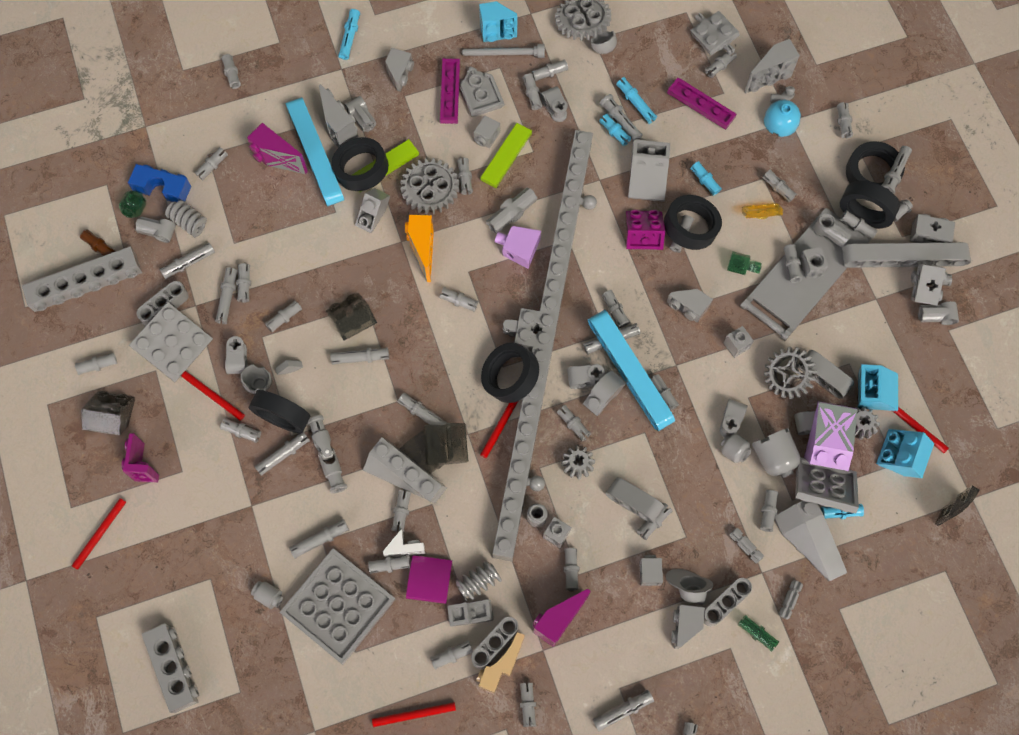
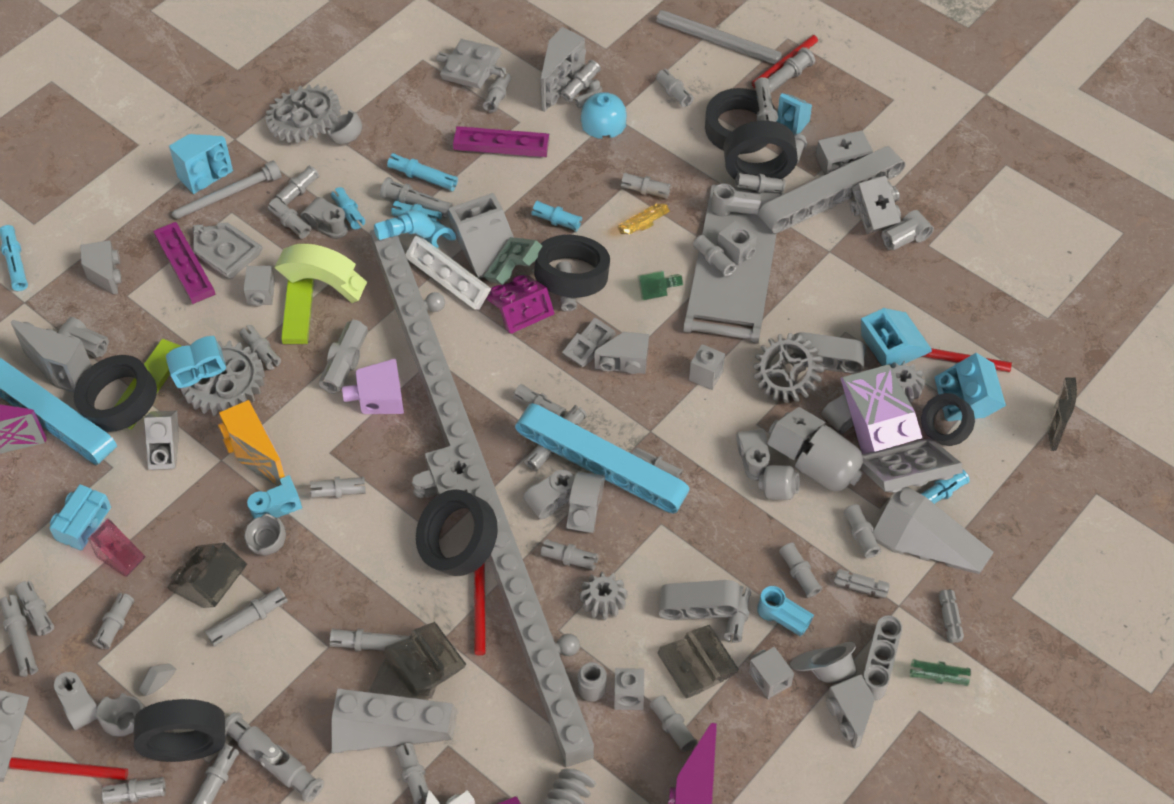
camera: 30 degrees left, 15 degrees down
(298, 237) = (79, 517): none -> medium azure brick
(307, 270) = (115, 548): none -> clear pink slope
(398, 308) = (265, 535): none -> light grey hair
(416, 169) = (196, 361): none -> medium azure brick
(416, 289) = (275, 501): none -> medium azure leg
(531, 140) = (322, 264): none -> yellowish green arch
(573, 103) = (349, 207): none -> medium azure pin
(605, 139) = (413, 223): none -> medium azure piece
(610, 184) = (447, 272): none -> white plate
(611, 537) = (697, 661): none -> clear smoke slope
(657, 194) = (515, 252): none -> sand green plate
(672, 282) = (583, 346): none -> light grey slope
(686, 538) = (785, 612): none -> medium azure piece
(712, 514) = (800, 570): none -> light grey pin
(766, 420) = (793, 432): none -> light grey brick
(781, 83) = (580, 80): none -> light grey pin
(888, 474) = (931, 410): none -> black tyre
(901, 95) = (718, 37): none -> light grey axle
(914, 183) = (793, 112): none -> medium azure slope
(937, 137) = (811, 41): none -> red bar
(938, 145) = (792, 68): none -> light grey pin

